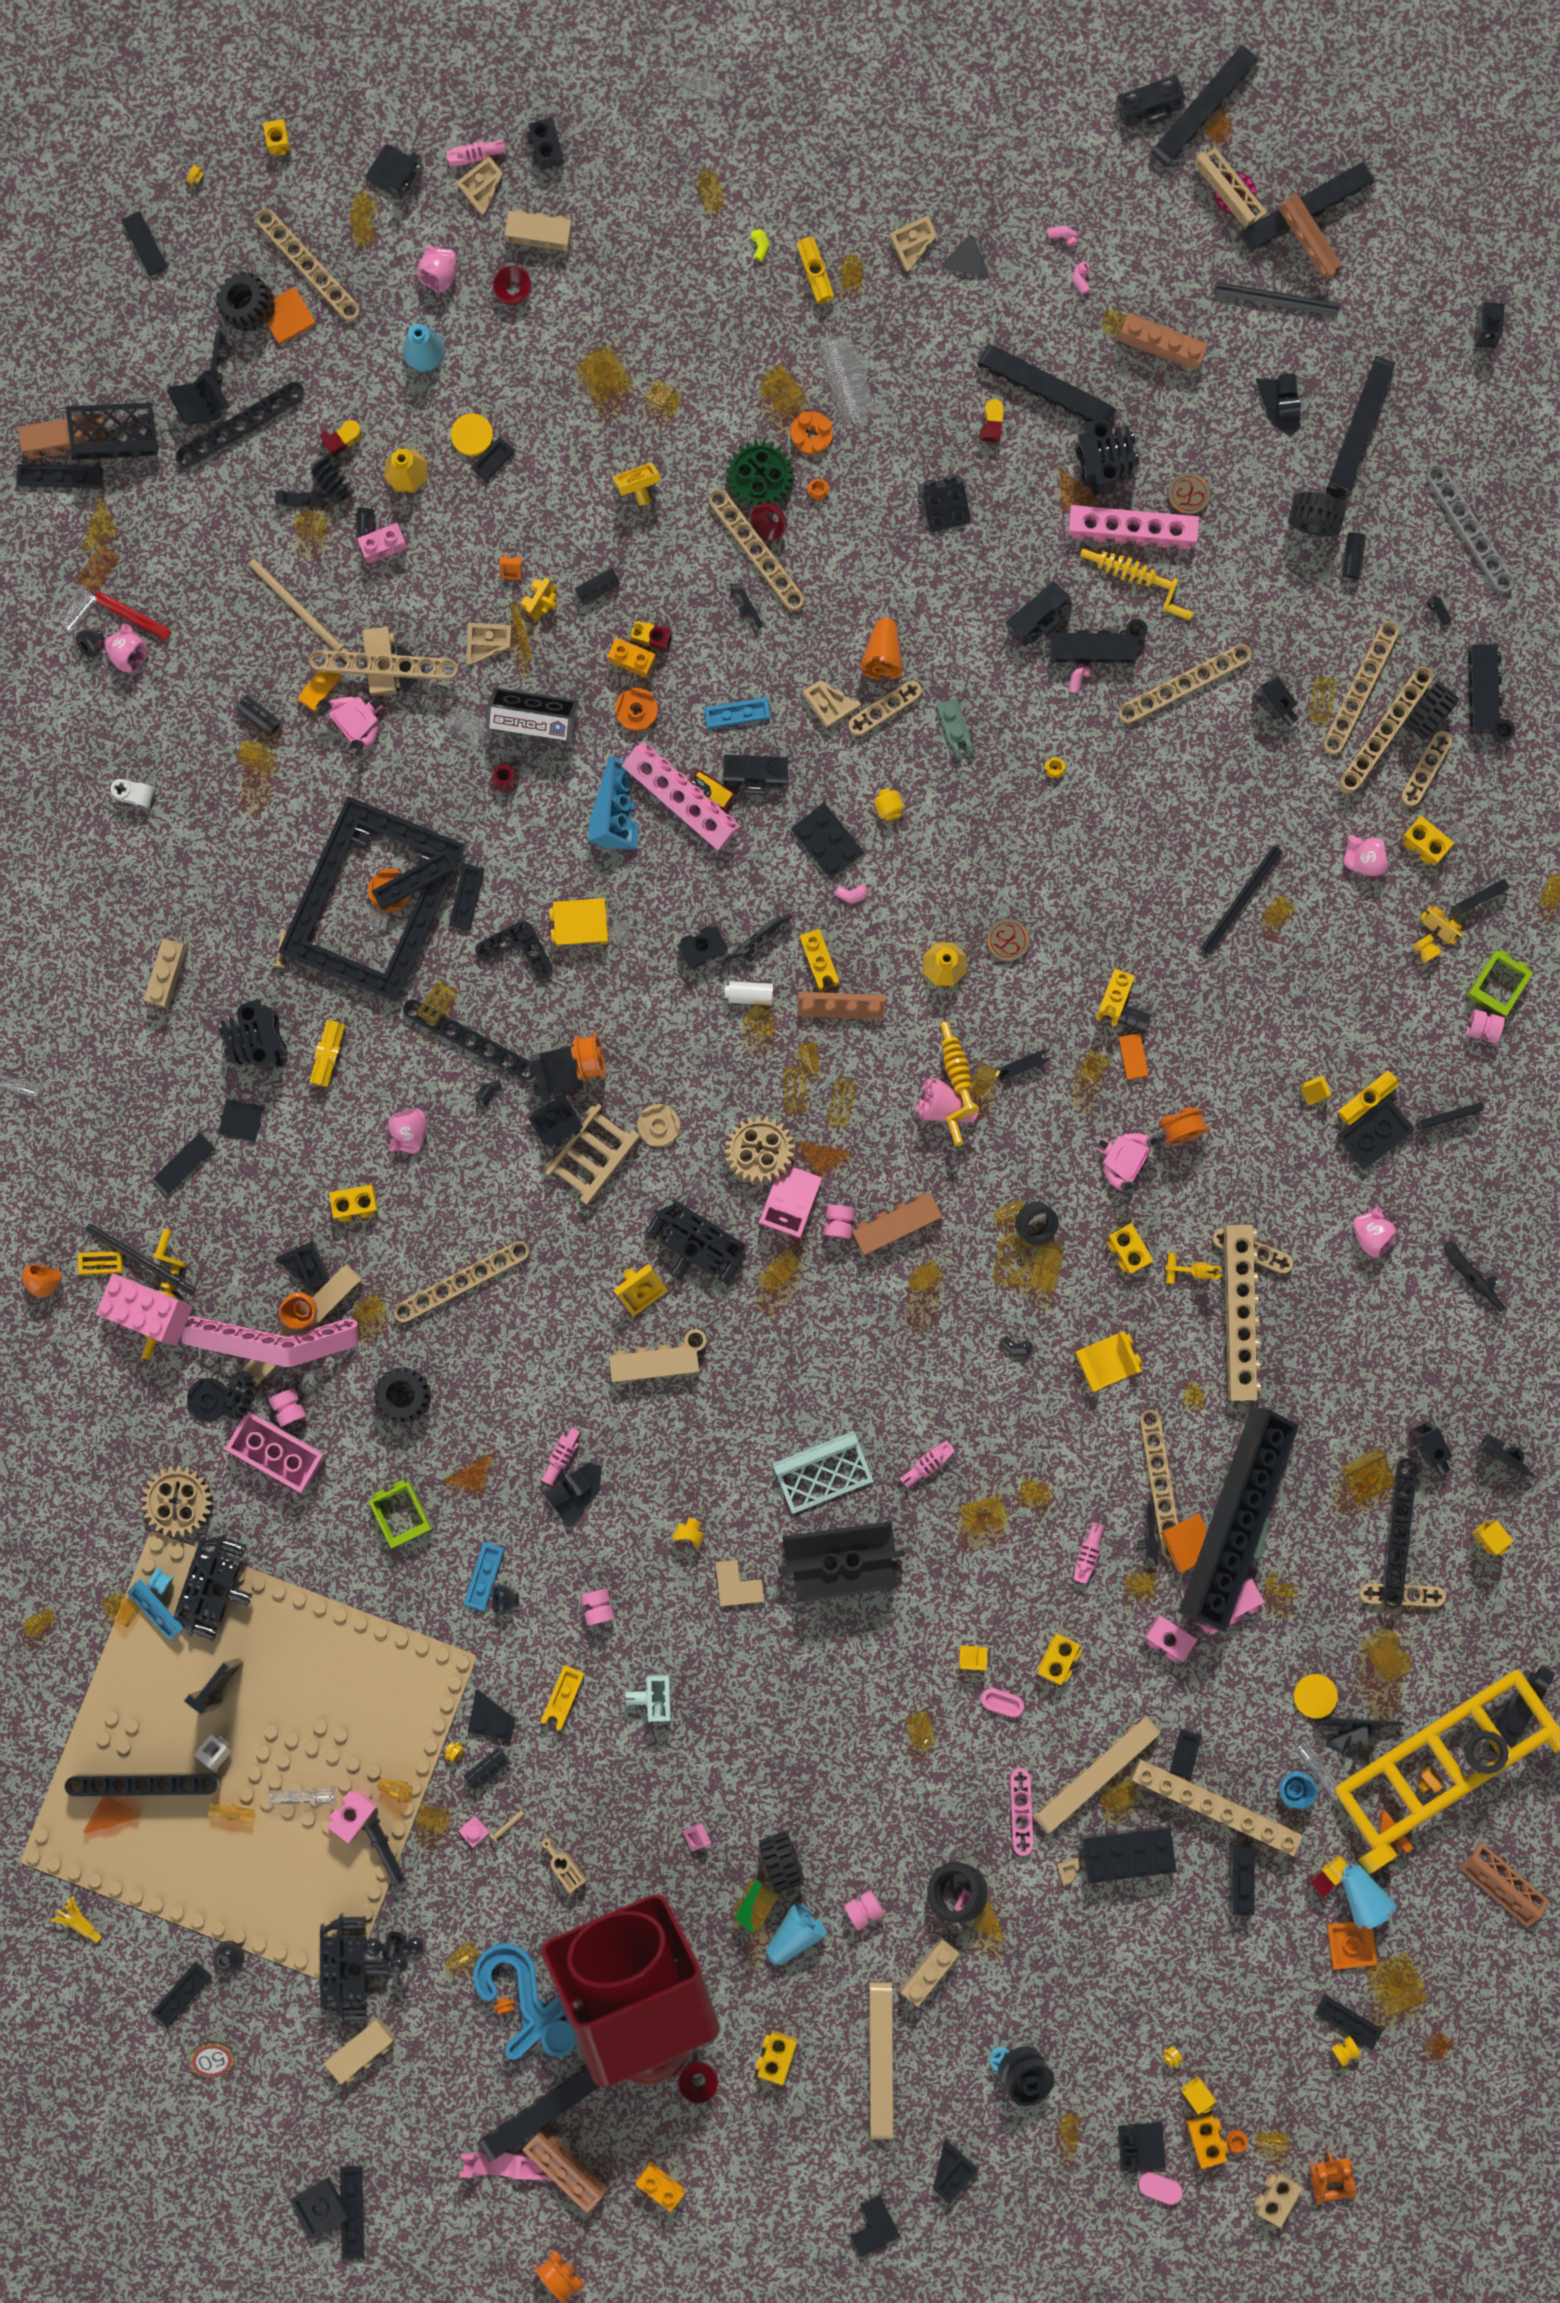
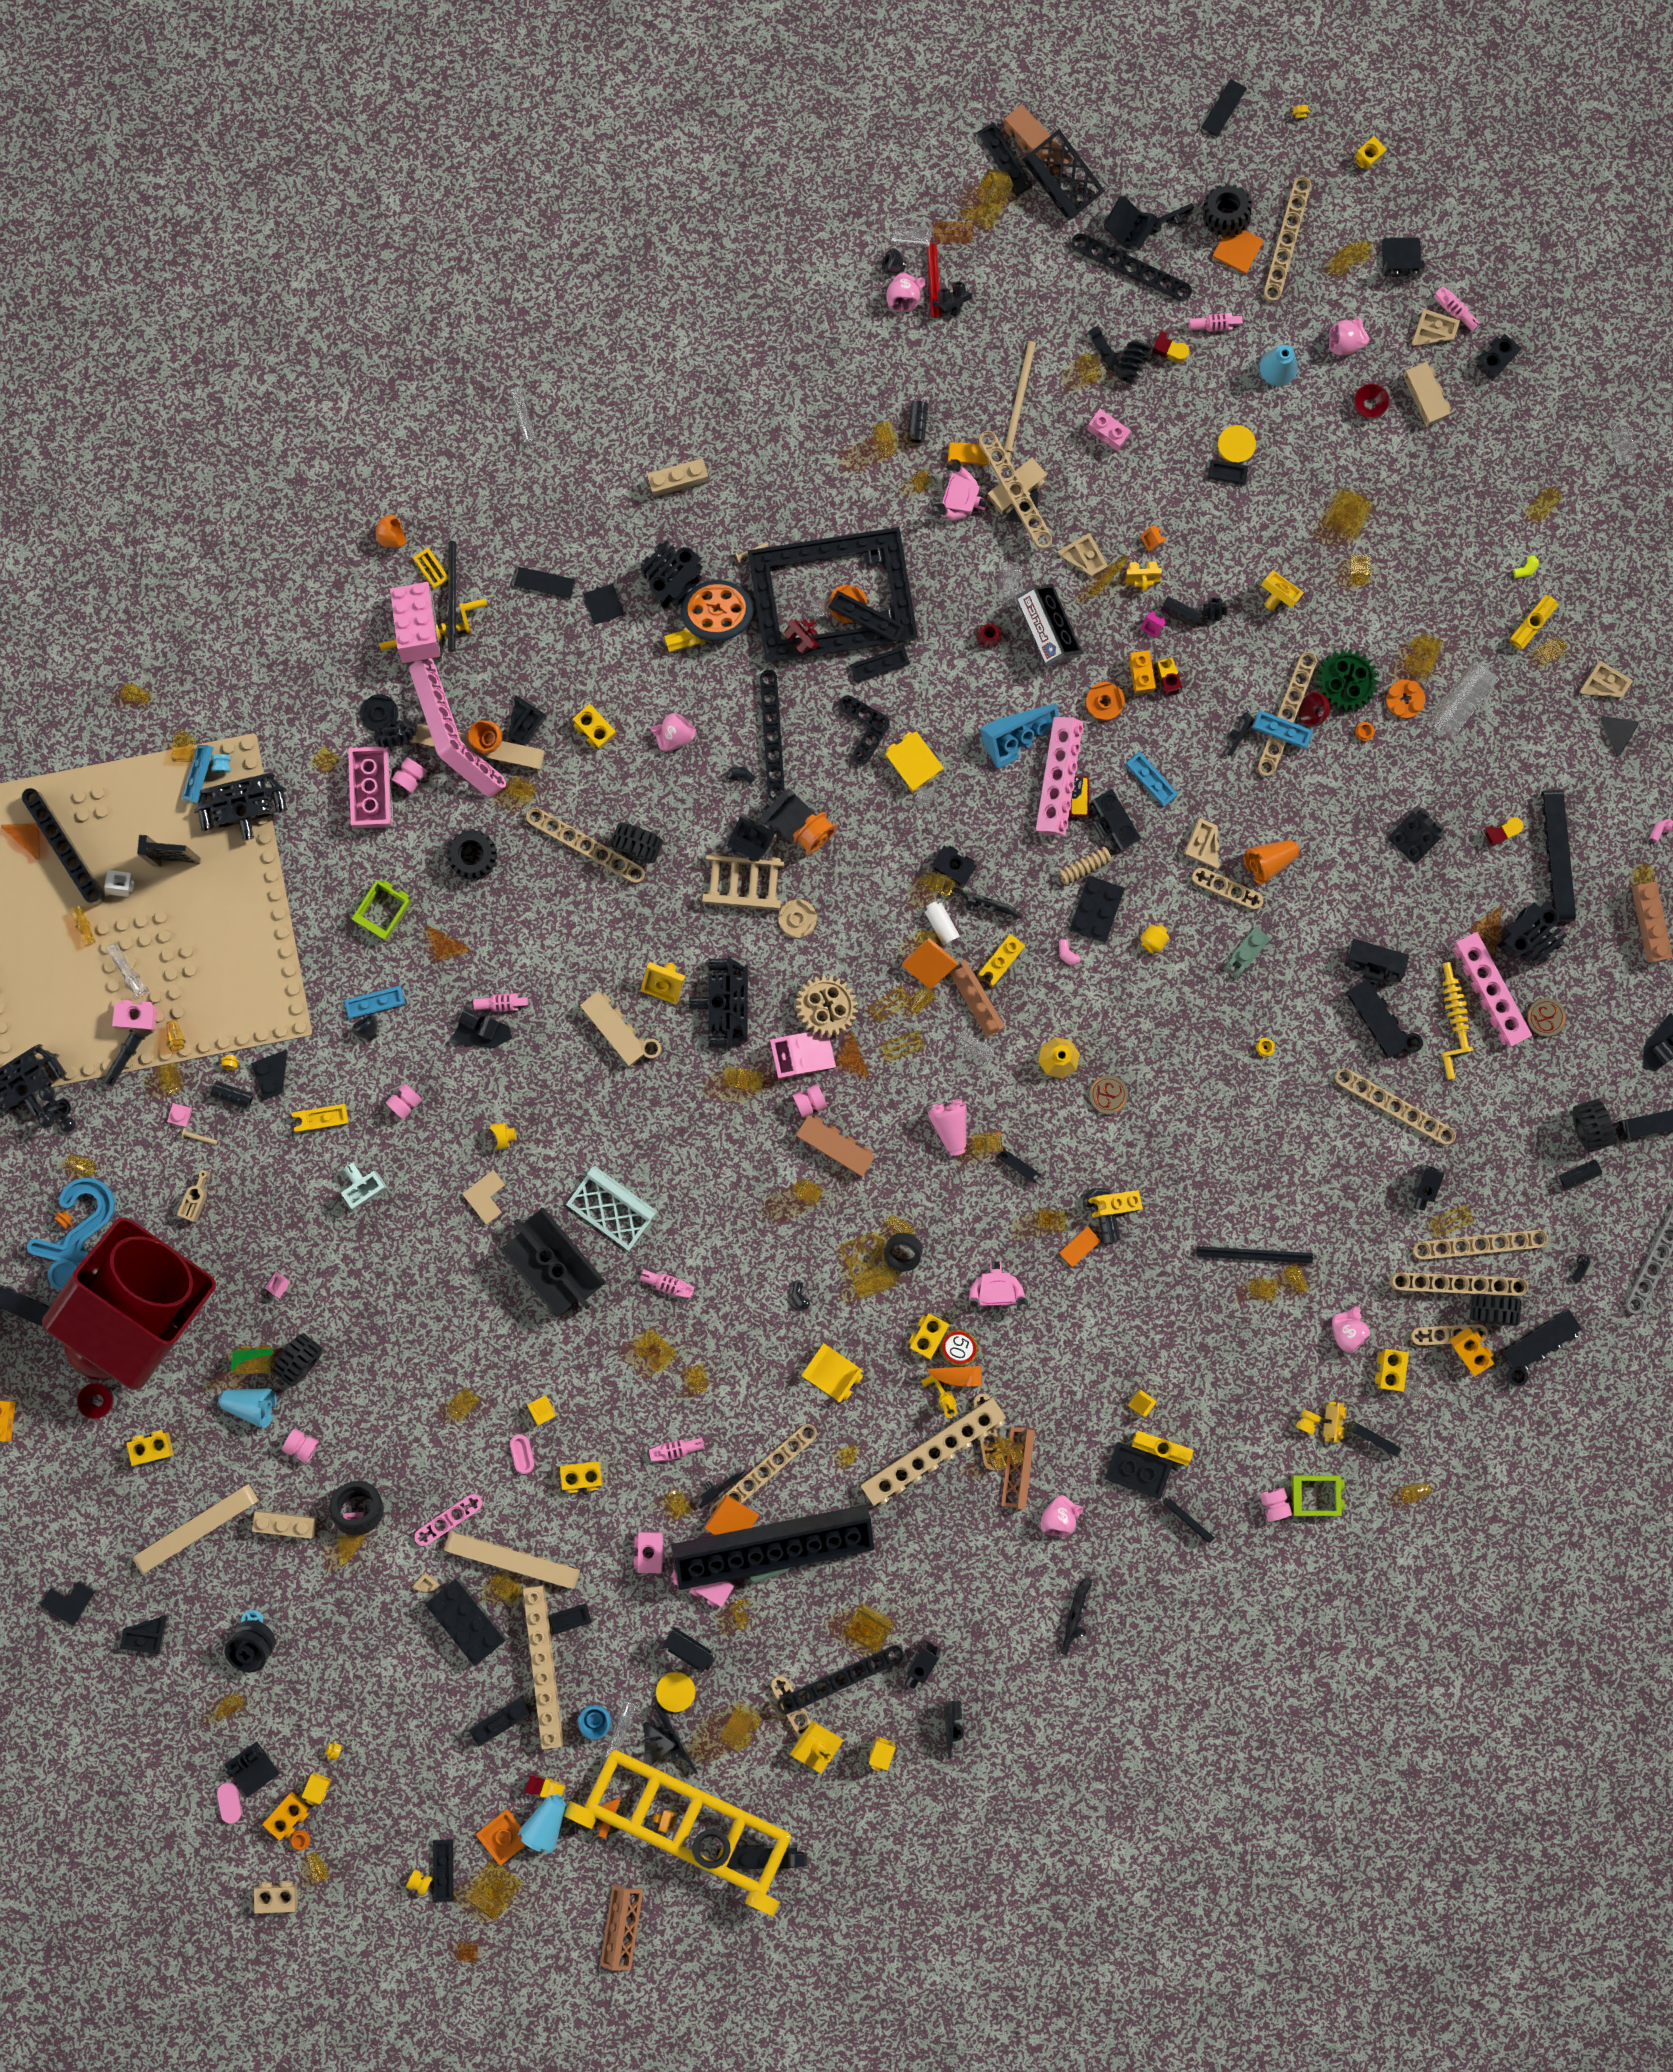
camera: 55 degrees right, 0 degrees up
(80, 502) = (994, 186): none -> clear yellow brick
(135, 793) = (799, 368): white piece -> none
(164, 610) = (953, 301): none -> black hips
(197, 1502) = (281, 722): tan gear -> none
(219, 1478) = (325, 759): none -> clear yellow tile
(316, 748) = (921, 480): none -> clear yellow plant
(338, 1029) = (716, 589): none -> wedge
(344, 381) = (1215, 322): none -> bright pink hinge
(364, 521) = (1117, 406): black cone -> none
(383, 953) = (807, 641): none -> dark red hips
(406, 470) = (1177, 412): yellow cone -> none
(445, 988) = (769, 691): clear yellow tile -> none
(491, 1231) = (636, 842): none -> black tyre
(593, 619) = (1152, 625): none -> dark pink tile
(615, 552) = (1215, 609): none -> black gear
(708, 974) = (935, 882): none -> clear yellow leg
(768, 563) = (1282, 729): none -> dark azure tile
(780, 825) = (1085, 865): none -> tan piece
(781, 1028) = (929, 963): none -> orange tile
(884, 1034) = (975, 1046): none -> clear piece
(958, 1072) = (980, 1120): yellow piece -> none
(1076, 677) = (1345, 1020): bright pink arm -> none
(1092, 1011) = (1093, 1193): none -> black arm
(1158, 1228) = (958, 1348): none -> piece
(1184, 1126) = (1048, 1318): orange wheel -> none
(1185, 1244) = (958, 1376): none -> orange piece
(1285, 1659) = (688, 1650): none -> black window
(1286, 875) = (1296, 1278): none -> clear yellow cone
(1286, 1237) = (1013, 1451): none -> clear yellow hips
(1310, 1237) = (1025, 1470): none -> nougat fence
(1332, 2171) = (320, 1926): orange piece -> none
(1449, 1594) = (816, 1747): none -> yellow tile
(1455, 759) = (1470, 1352): none -> light orange brick

